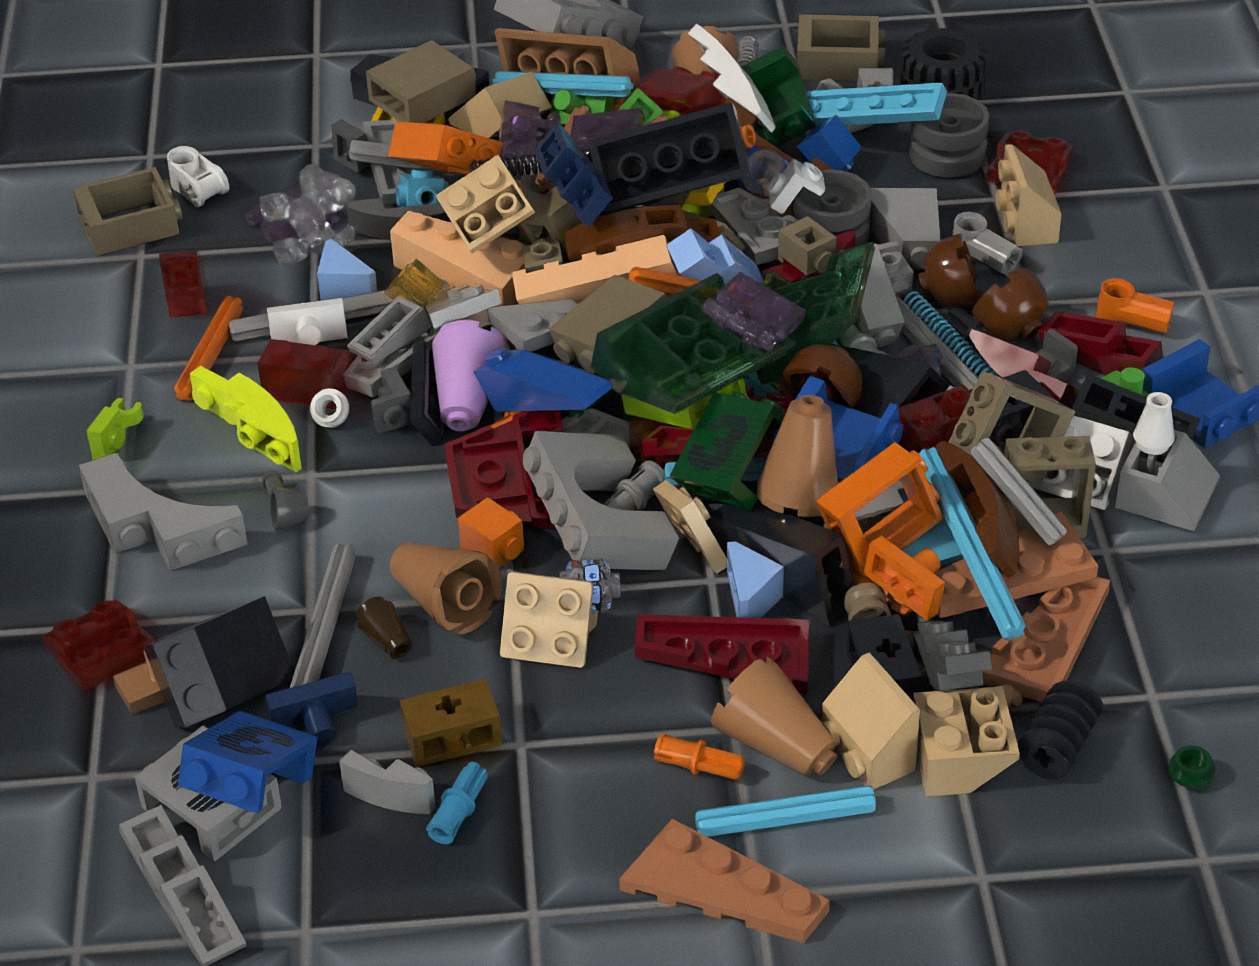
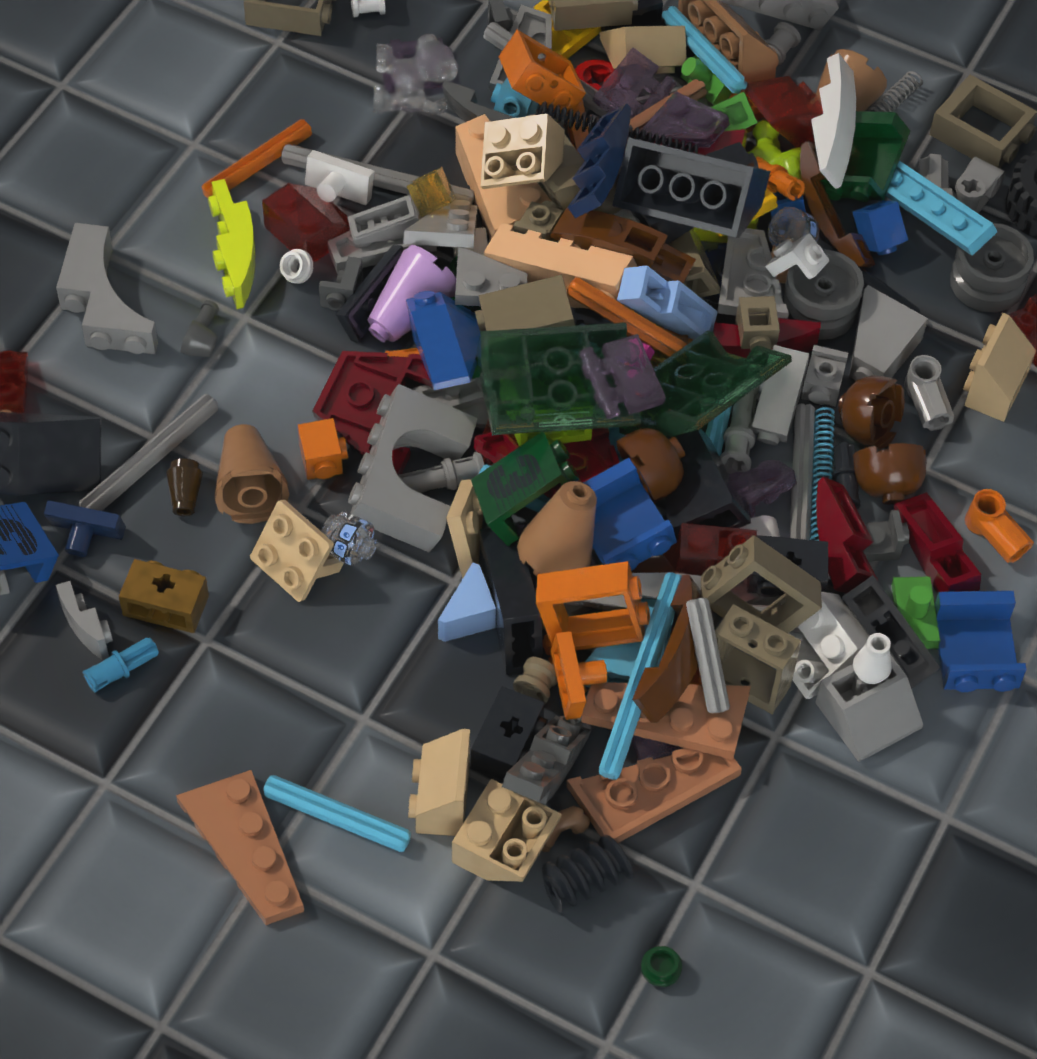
camera: 30 degrees right, 15 degrees up
(108, 429) = (126, 198): lime plate -> none
(184, 283) = (276, 91): clear red slope -> none
(343, 274) = (396, 144): light blue slope -> none
(698, 757) = (312, 730): orange axle -> none
(725, 644) = (417, 656): dark red wing -> none
(775, 720) = (382, 736): medium nougat cone -> none

